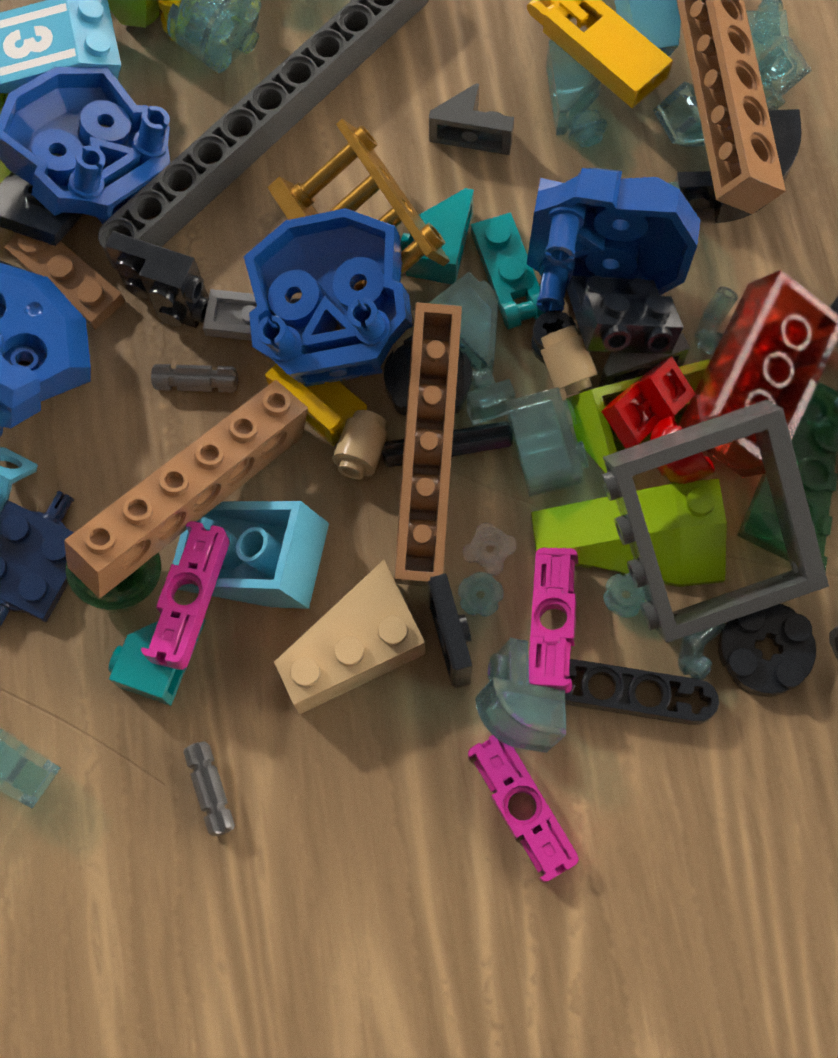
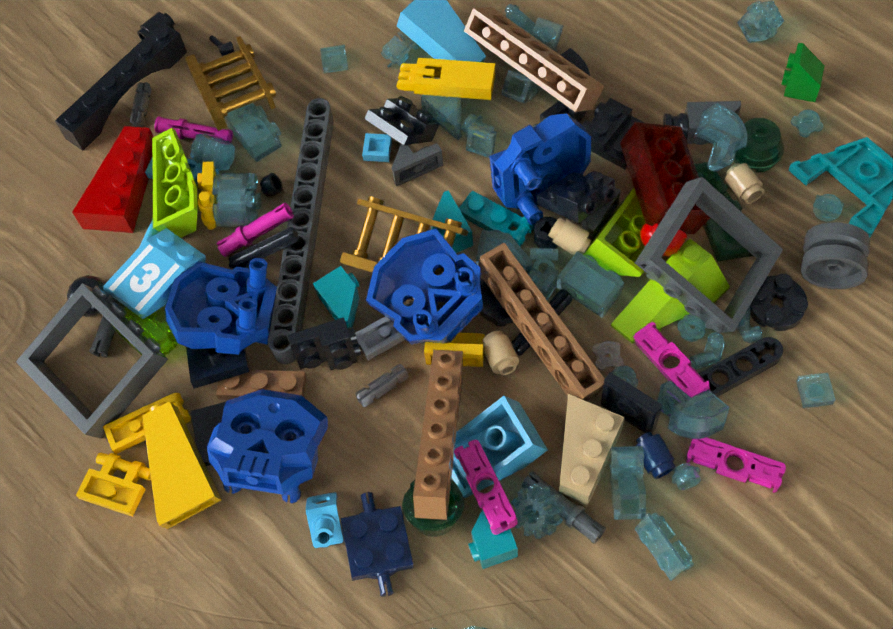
camera: 35 degrees left, 10 degrees down
(196, 74) = (246, 235): none -> dark pink pin
(197, 105) = (264, 248): none -> black axle
(209, 789) = (577, 578): flat silver axle -> none
(226, 672) = (533, 500): none -> clear light blue gear
(235, 227) = (339, 294): none -> teal slope
(270, 708) = (572, 514): none -> dark grey pin
(282, 25) = (271, 184): none -> black hinge
(338, 851) = (655, 534): none -> clear light blue hinge
(361, 726) = (627, 483): none -> clear light blue brick
(430, 717) = (657, 456): none -> dark blue brick
(444, 73) = (377, 147): none -> medium azure plate
(445, 773) = (686, 476): none -> clear light blue plate
(498, 61) = (404, 121): none -> black plate
(523, 361) = (543, 255): none -> clear light blue tile
(579, 150) = (481, 139): none -> clear light blue tile
(622, 647) = (712, 352): none -> clear light blue arm
(647, 401) = (626, 227): red slope -> none
(708, 799) = (815, 390): none -> clear light blue plate
(712, 318) = (614, 170): clear light blue arm -> none
(756, 251) = (608, 129): none -> black plate

